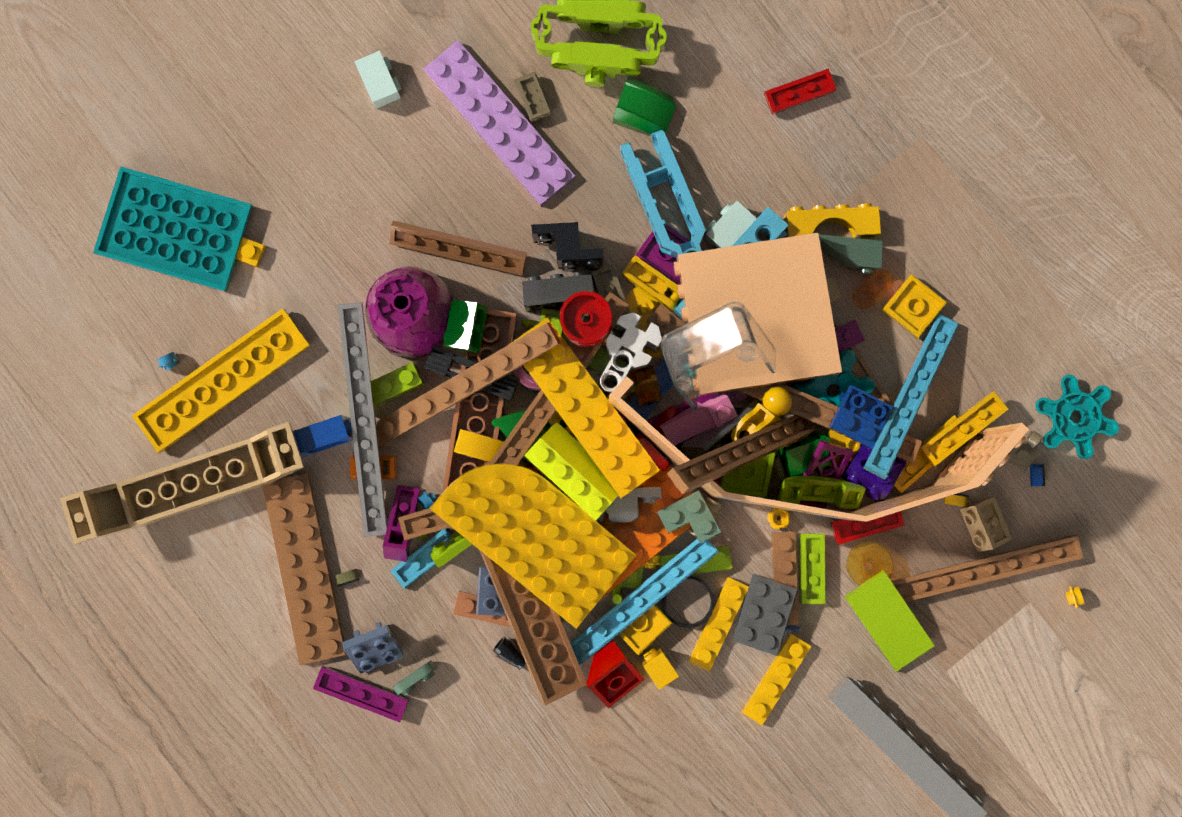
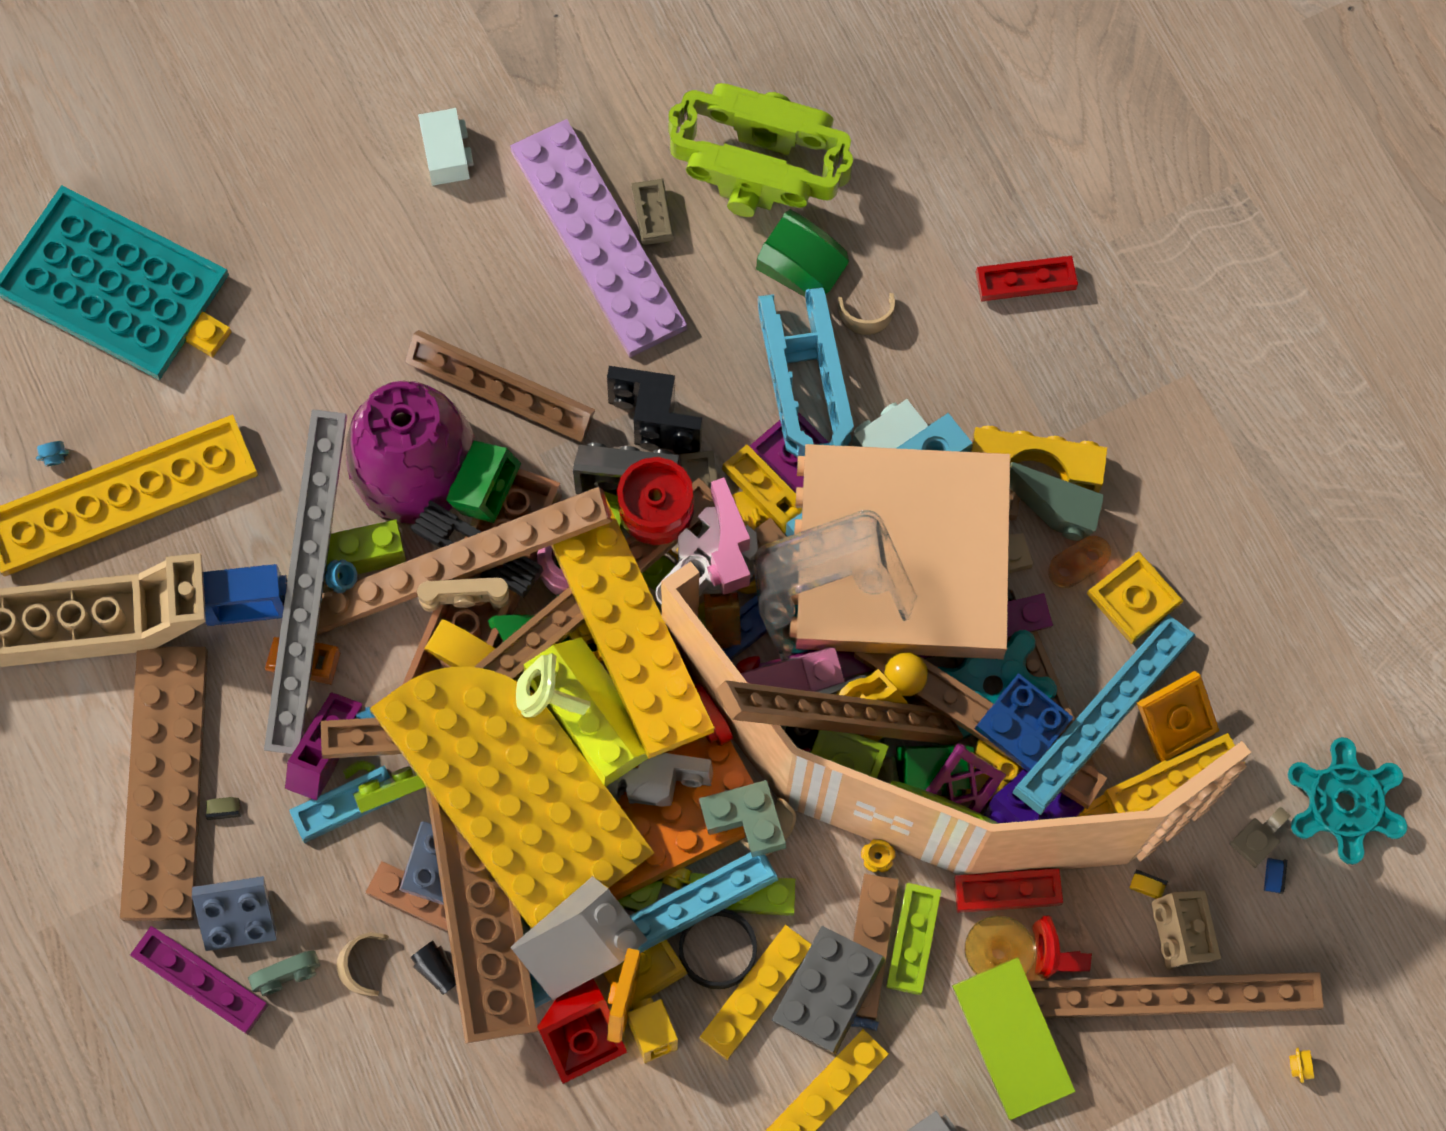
camera: 10 degrees right, 15 degrees down
(389, 410) = (347, 575): none -> dark azure plate
(450, 655) = (342, 964): none -> tan helmet
(470, 407) = (463, 593): none -> tan plate
(545, 474) = (545, 694): none -> yellowish green piece
(601, 624) = (578, 940): none -> light grey slope
(636, 654) = (622, 995): none -> light orange plate
(645, 356) = (727, 563): none -> bright pink slope
(695, 151) = (866, 327): none -> tan helmet
(902, 561) = (1048, 951): none -> red piece
(958, 384) = (1178, 716): none -> light orange plate

